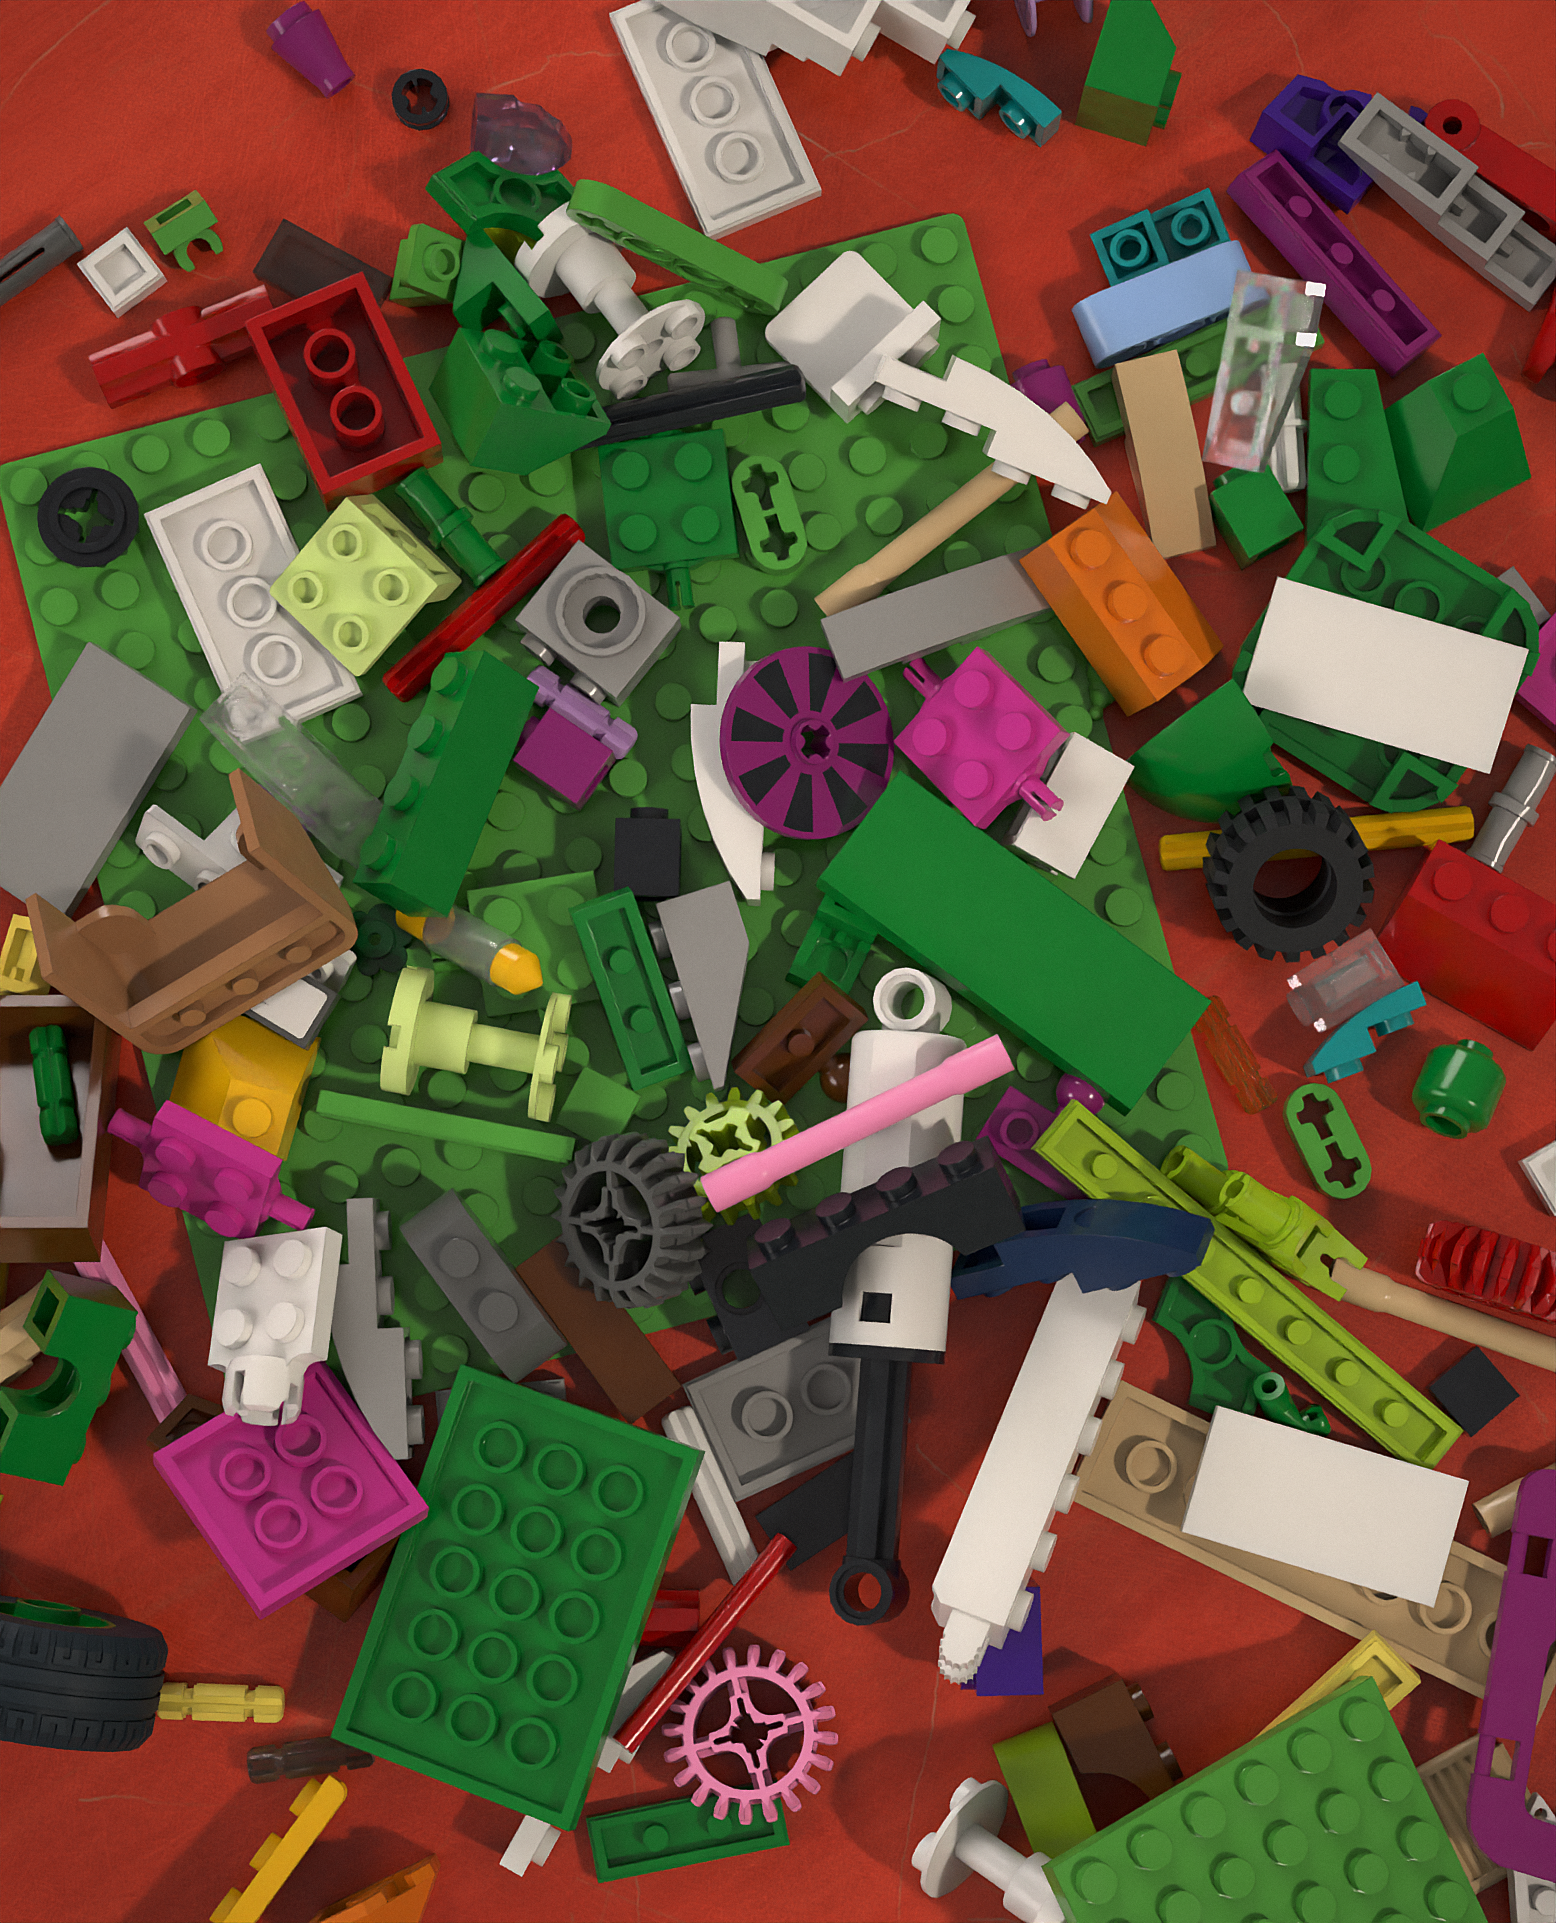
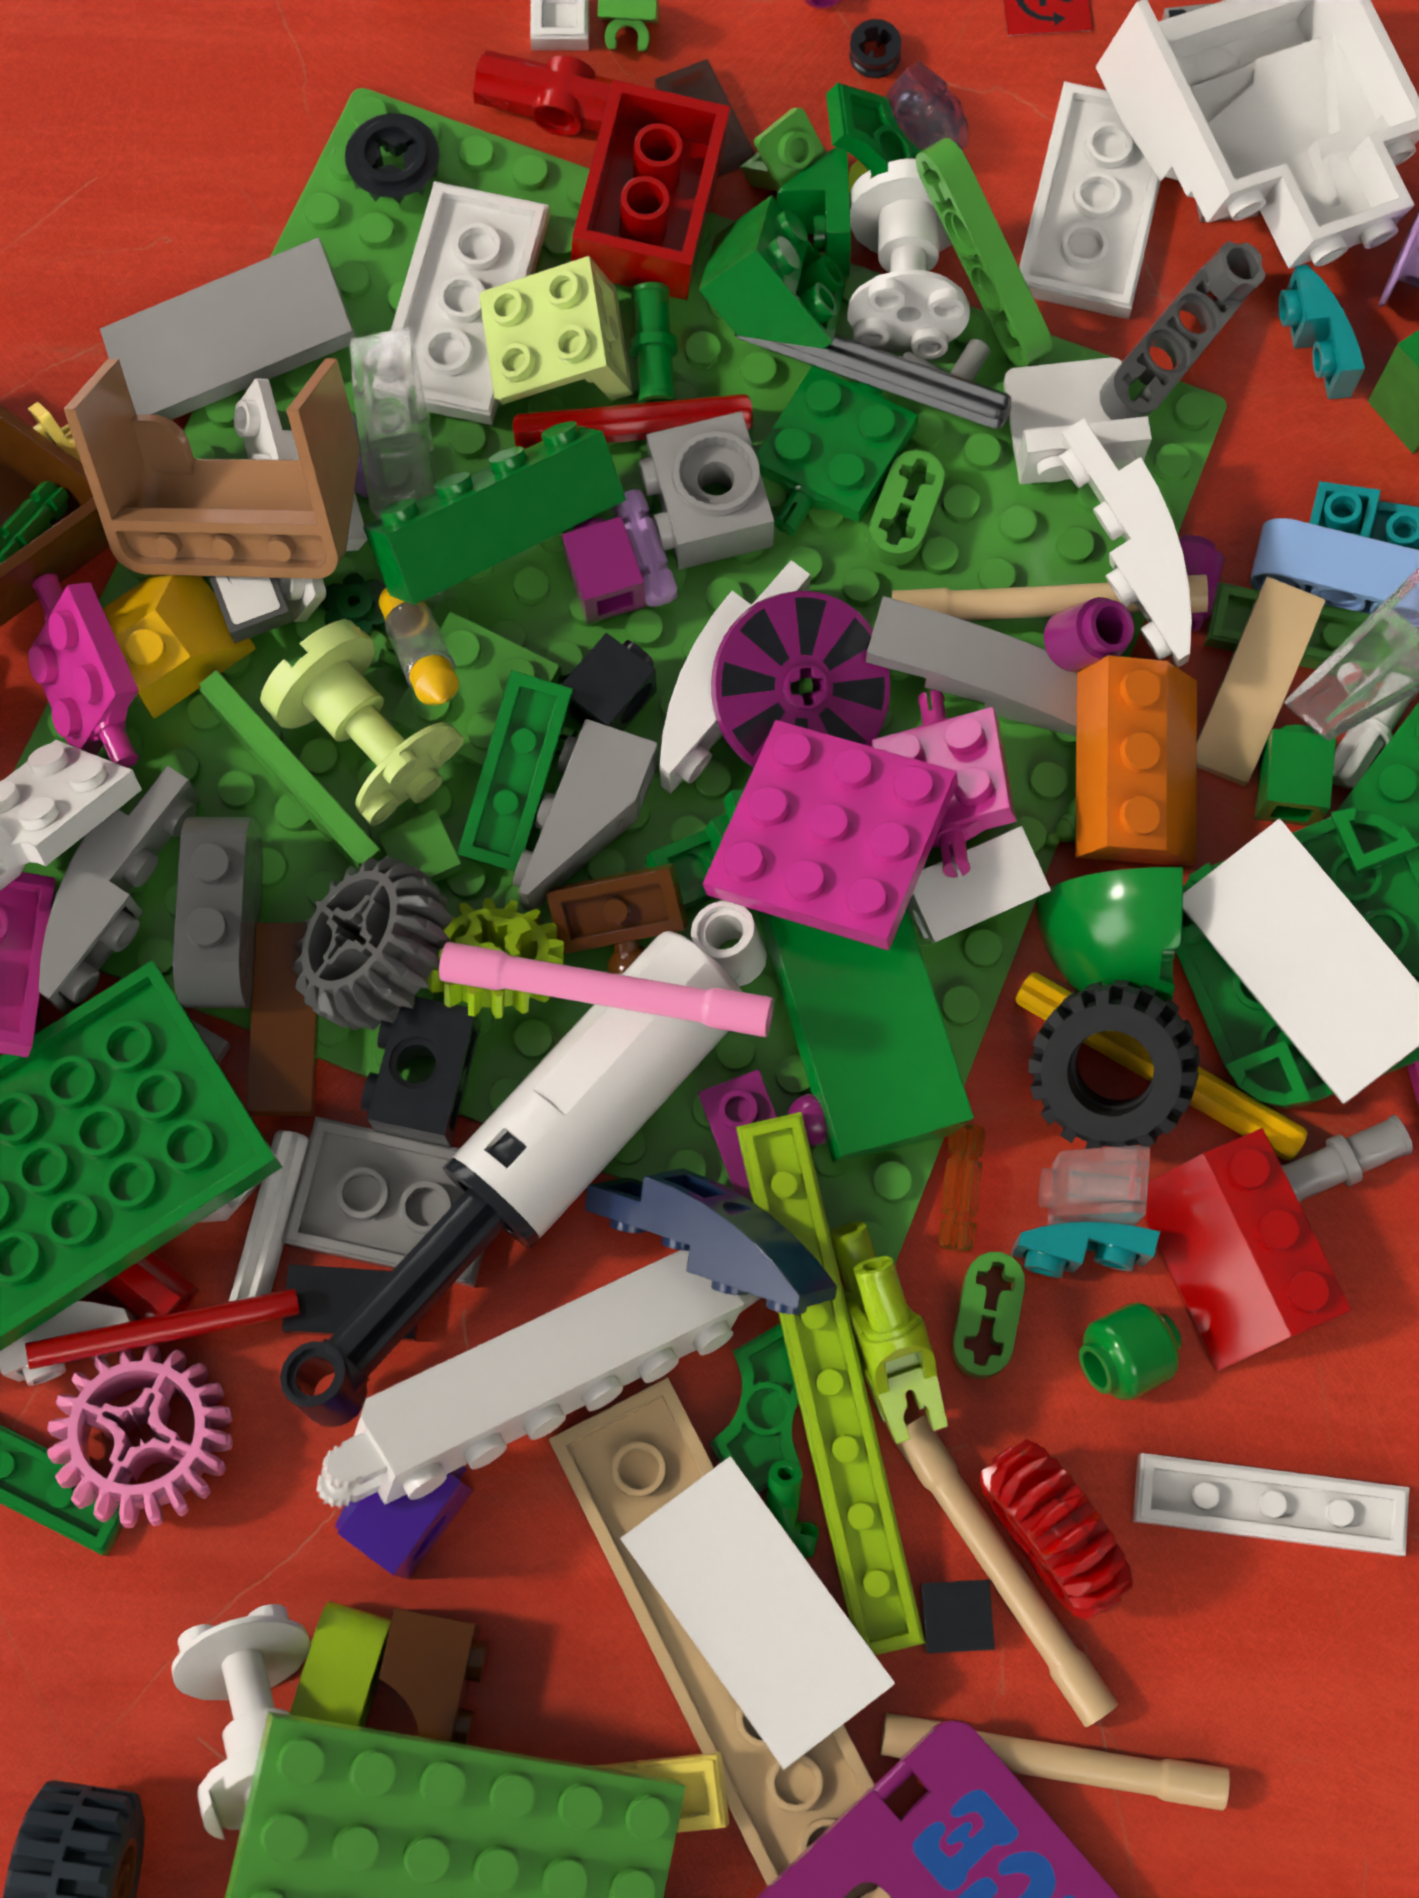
camera: 35 degrees right, 10 degrees down
(888, 105) = (1231, 277): none -> dark grey beam
(933, 857) = (831, 834): none -> dark pink plate
(952, 1197) = (639, 1103): black arch -> none
(1010, 527) = (1088, 633): none -> magenta brick

